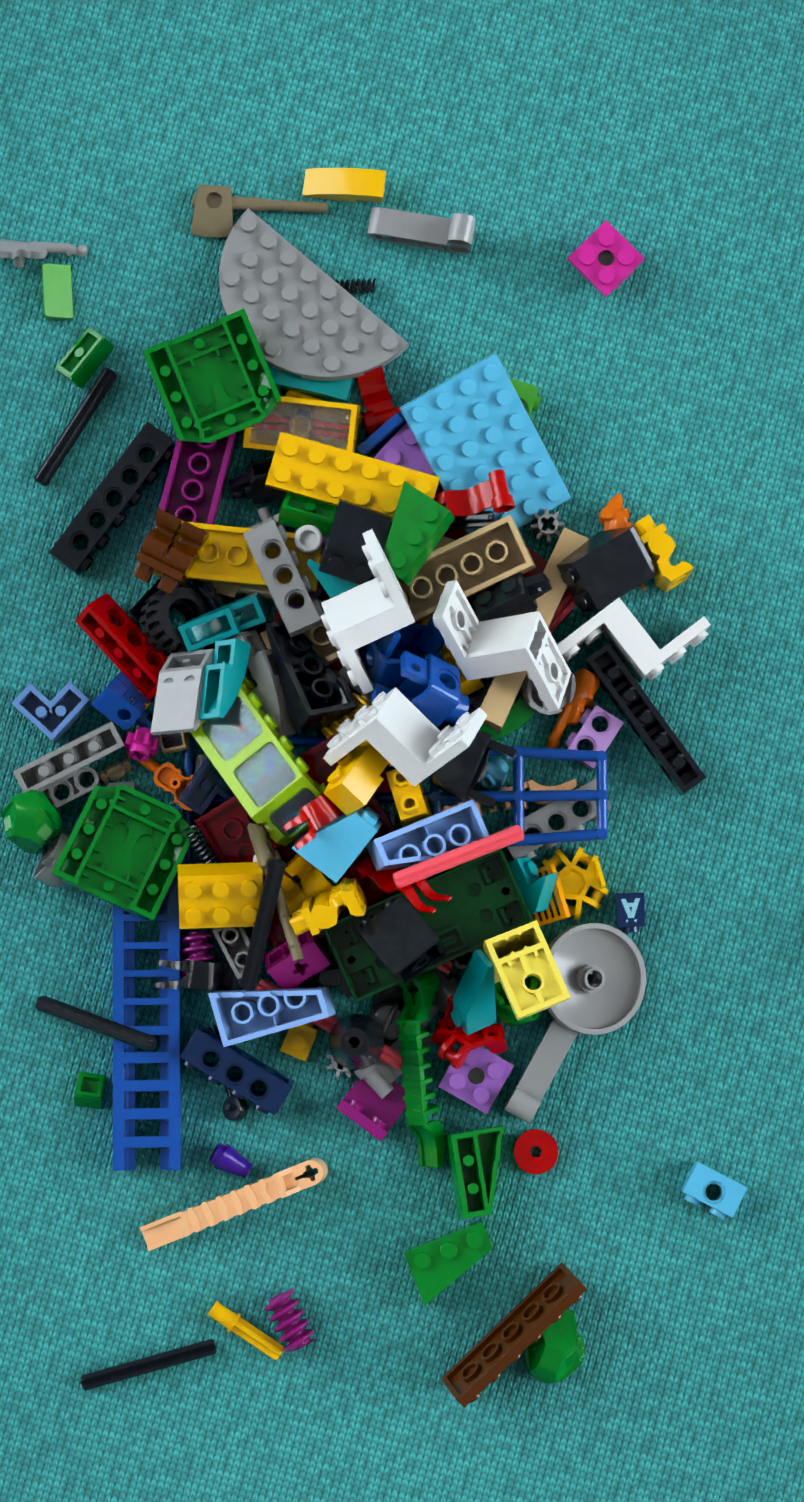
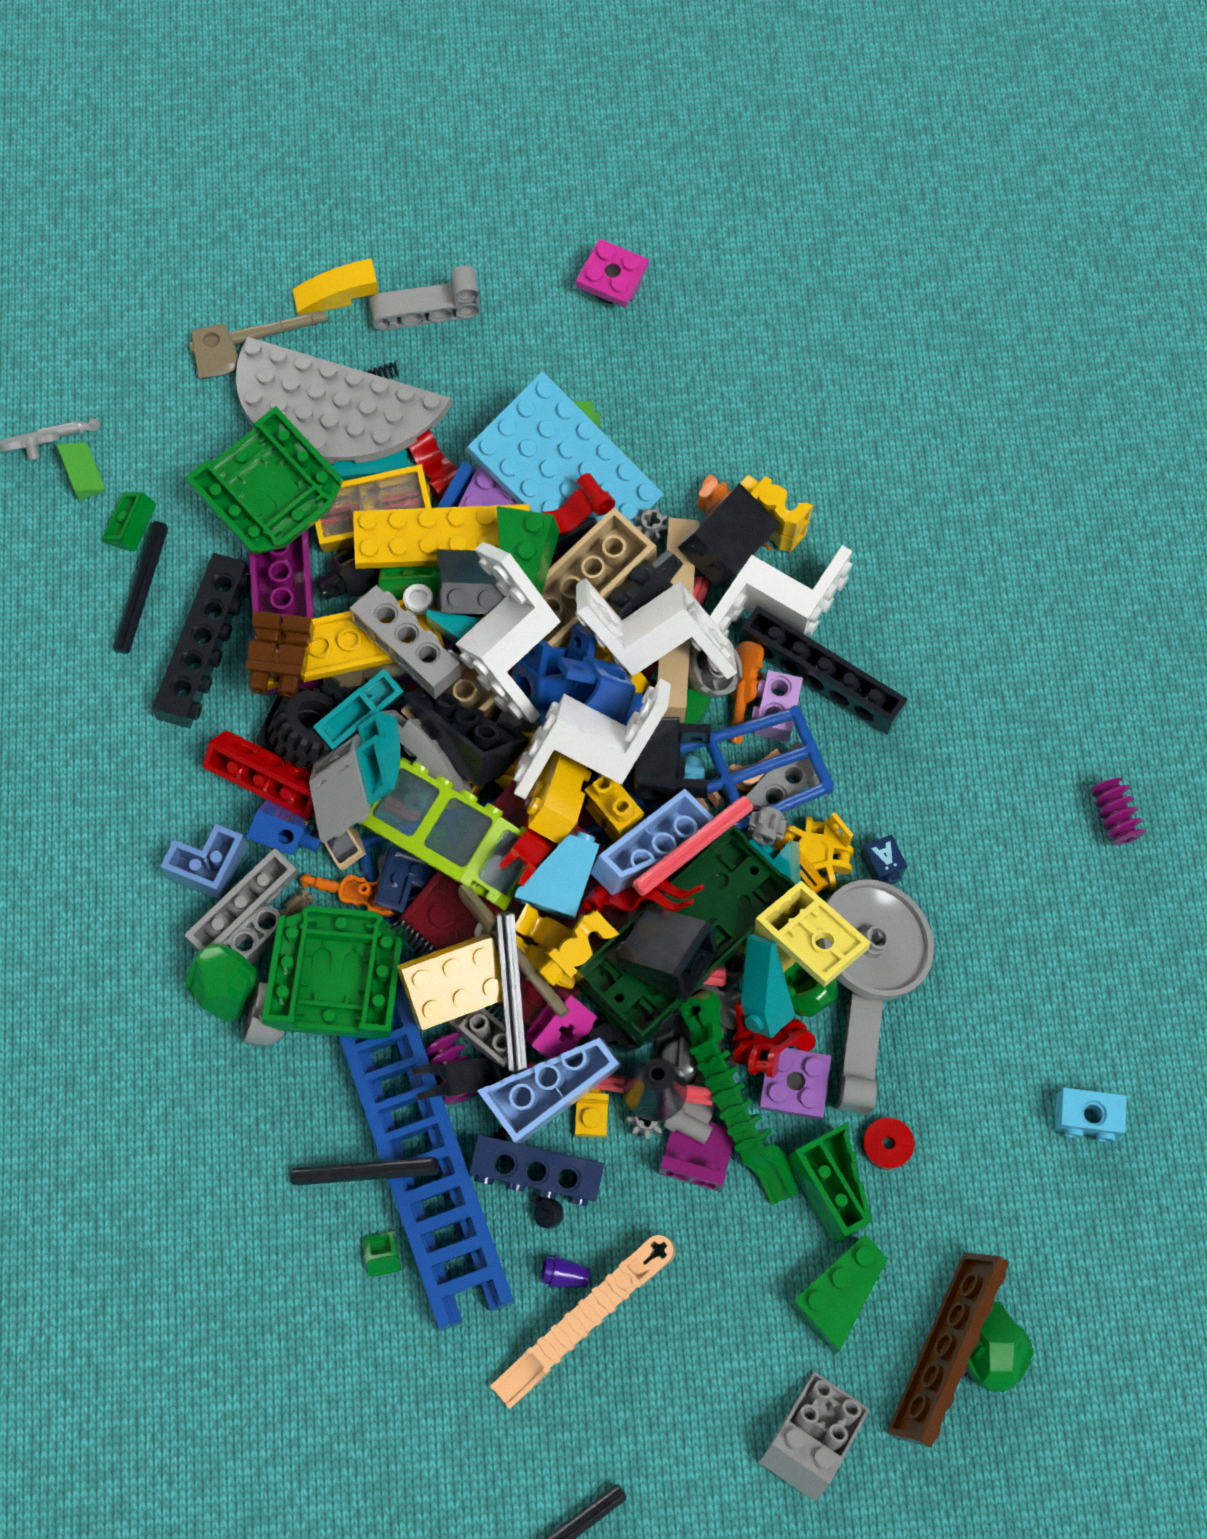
camera: 25 degrees left, 15 degrees down
(141, 744) = (314, 864): dark pink gear -> none
(246, 1330) = (651, 1459): yellow axle -> none
(289, 1321) = (696, 1428): magenta piece -> none
(382, 1360) = (815, 1436): none -> light grey slope
(534, 853) = (767, 826): none -> light grey gear

